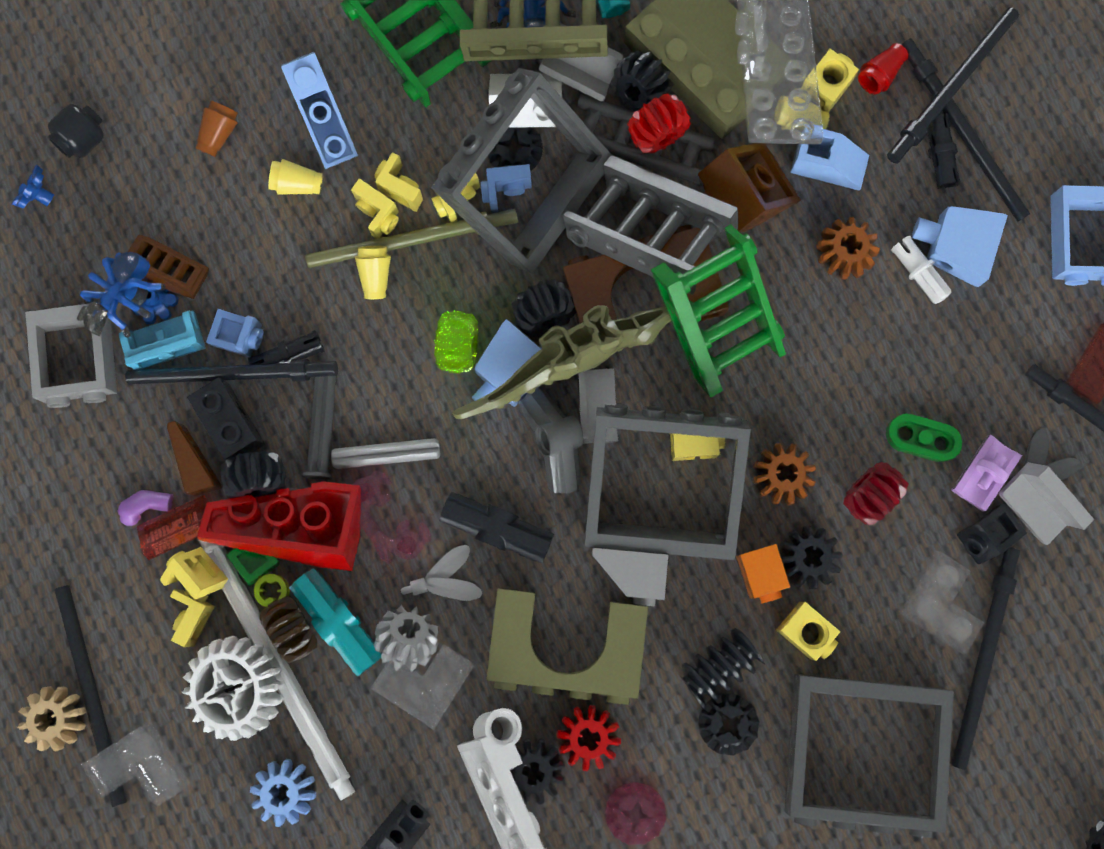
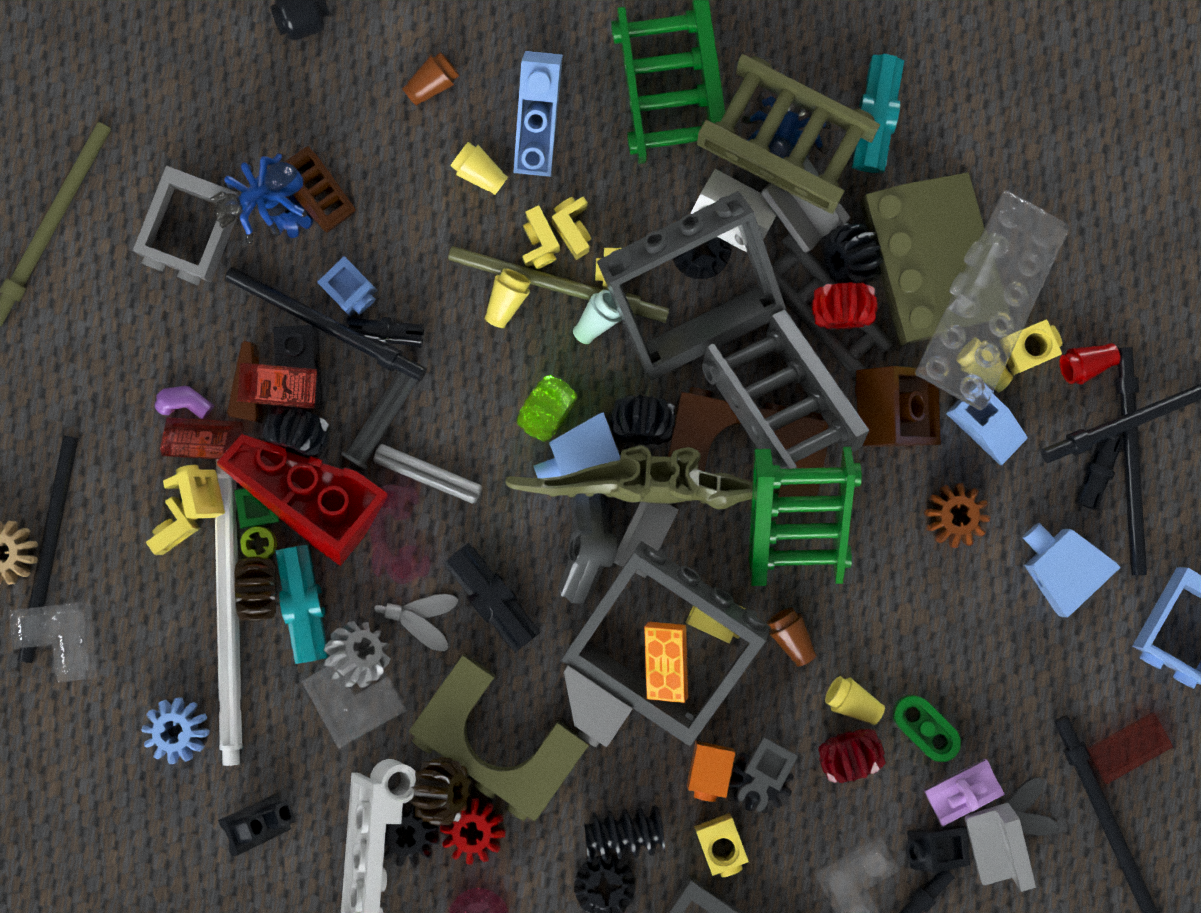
camera: 20 degrees right, 5 degrees up
(33, 190) = (230, 47): blue plant -> none
(162, 341) = (278, 257): medium azure hinge -> none
(214, 442) = (277, 385): none -> clear red tile
(241, 713) = (171, 643): white gear -> none
(458, 245) = (597, 317): none -> light aqua cone
(509, 179) = (679, 281): medium blue bracket -> none
(542, 715) = (440, 791): none -> dark brown gear
(675, 495) = (666, 662): none -> orange tile
(769, 422) = (792, 636): none -> dark orange cone
(783, 460) = (788, 681): dark orange gear -> none
(812, 537) = (769, 767): none -> dark grey plate
(850, 448) = (852, 700): none -> light yellow cone
(922, 270) = (1014, 573): white axle -> none

